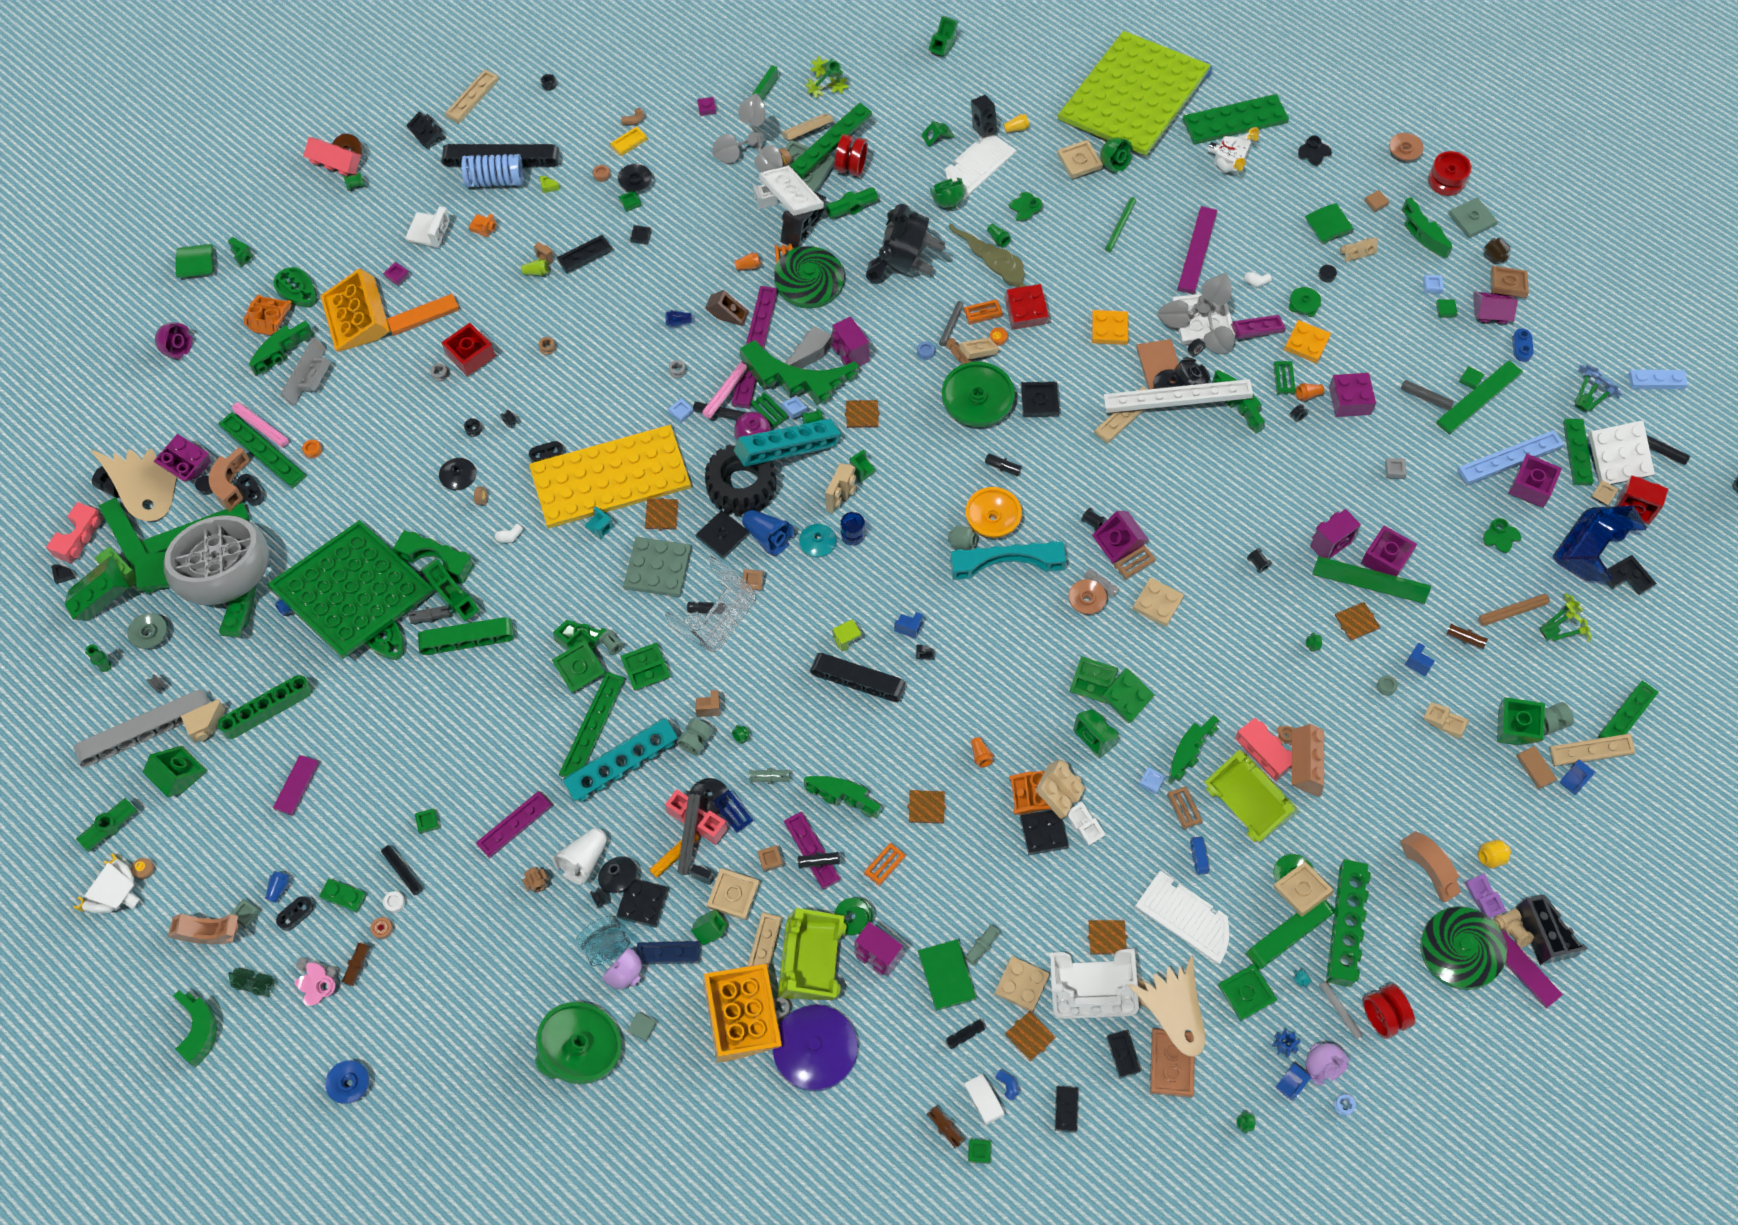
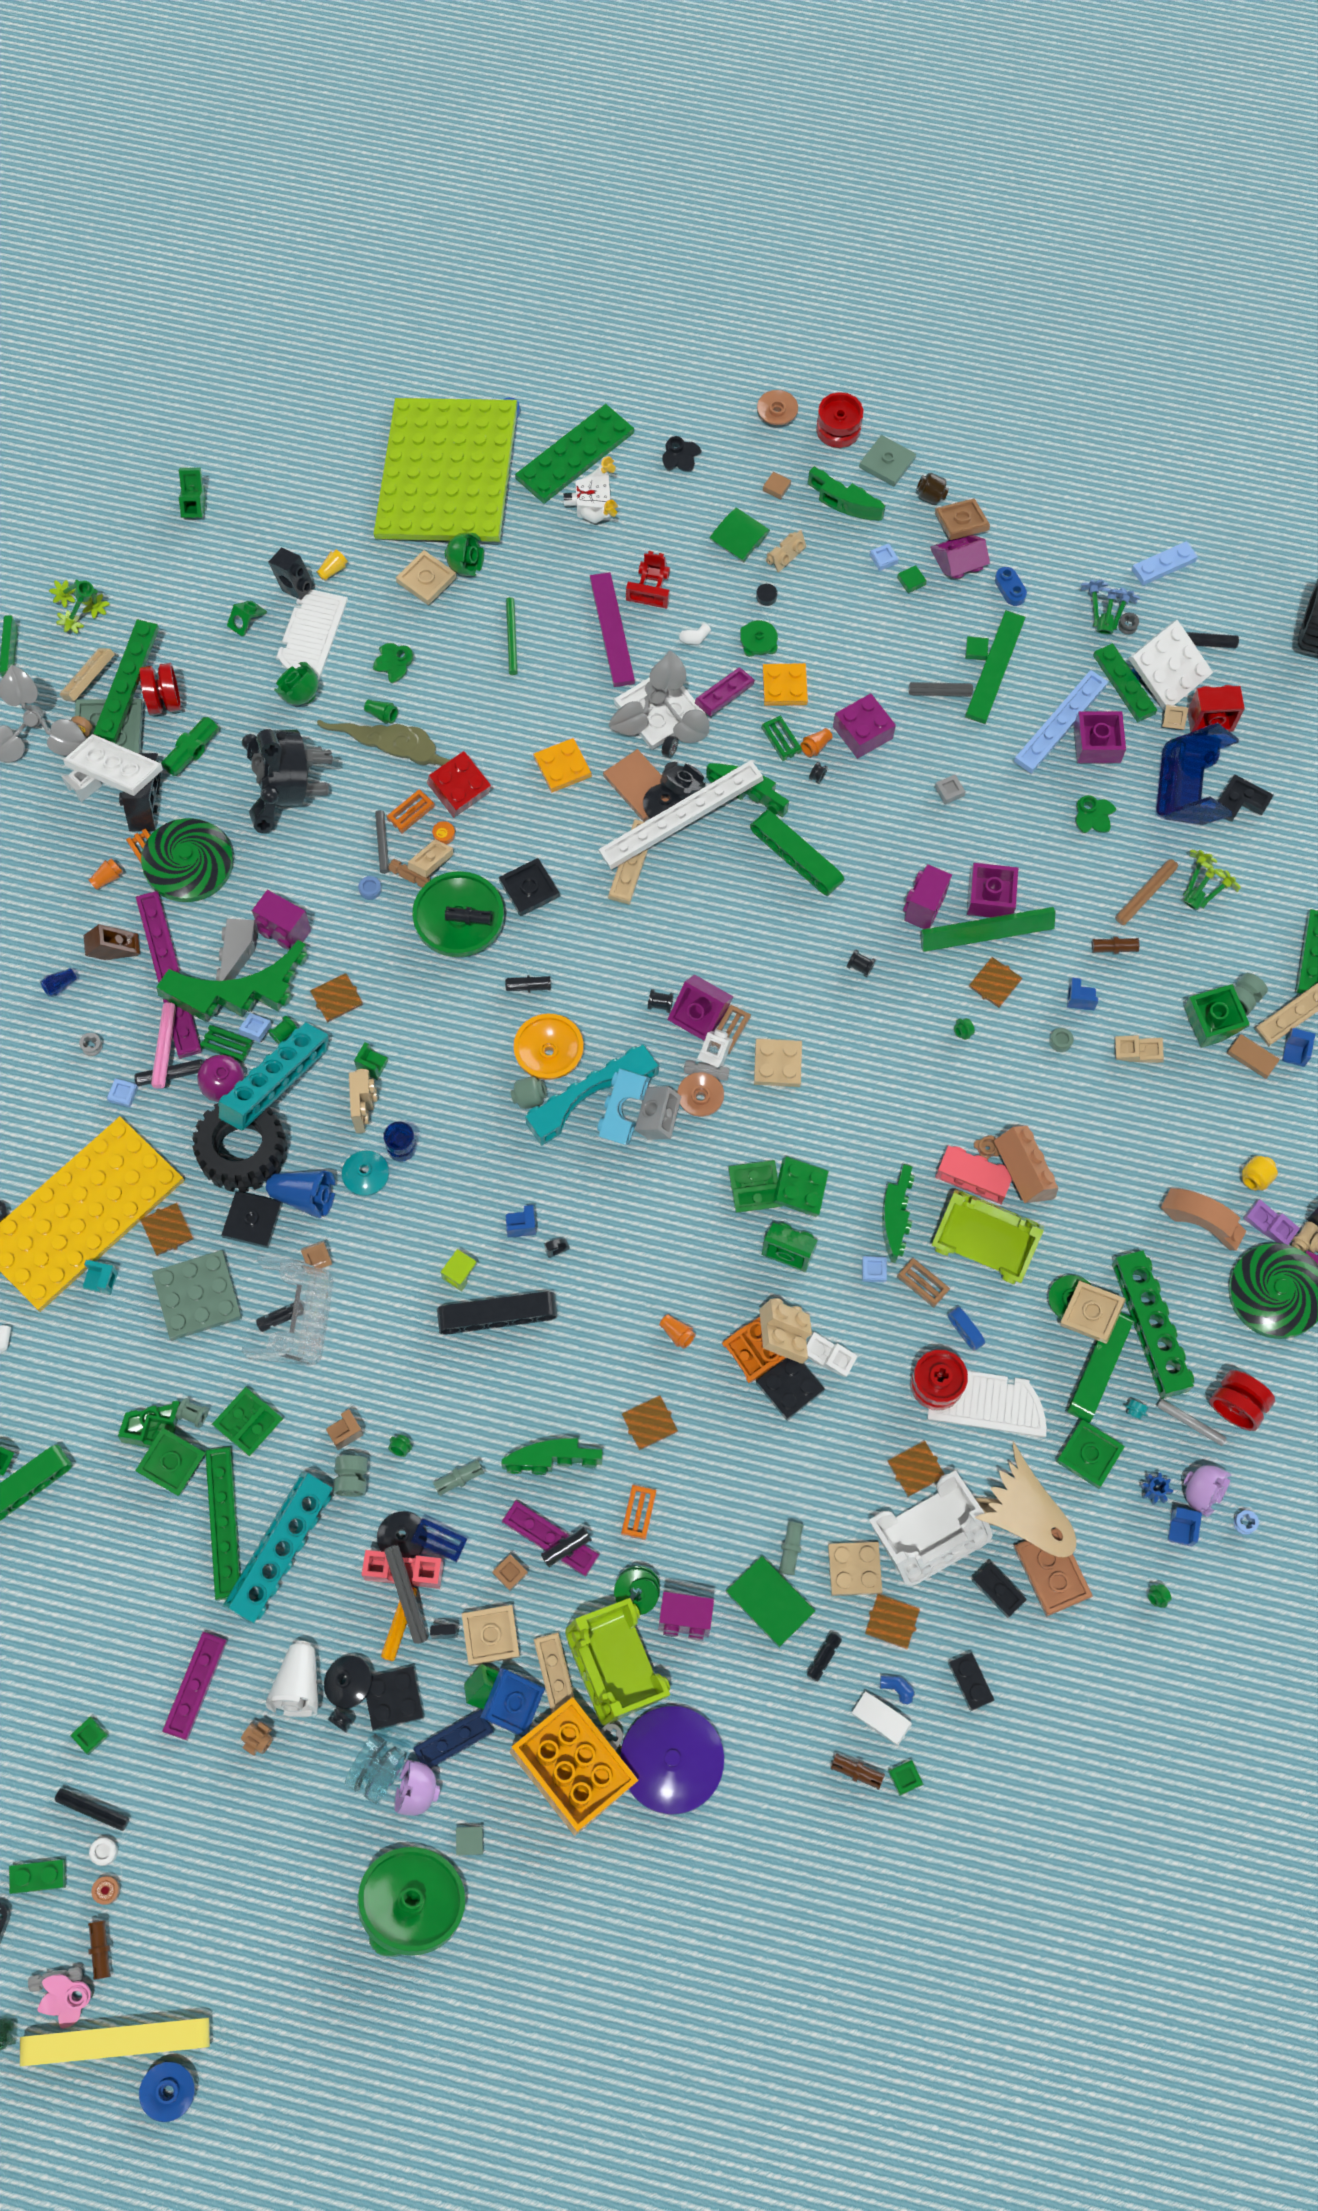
camera: 30 degrees left, 5 degrees up
(332, 1030) = (114, 2042): none -> light yellow beam
(722, 946) = (512, 1702): none -> blue tile
(983, 397) = (468, 915): none -> black pin
(1012, 586) = (614, 1124): none -> medium azure arch
(1048, 594) = (658, 1113): none -> light grey brick
(1115, 569) = (715, 1048): none -> white window
(1157, 880) = (942, 1366): none -> red wheel
(1251, 220) = (654, 569): none -> red tile
(1252, 462) = (797, 852): none -> green beam
(1602, 414) = (1129, 617): none -> dark grey bush

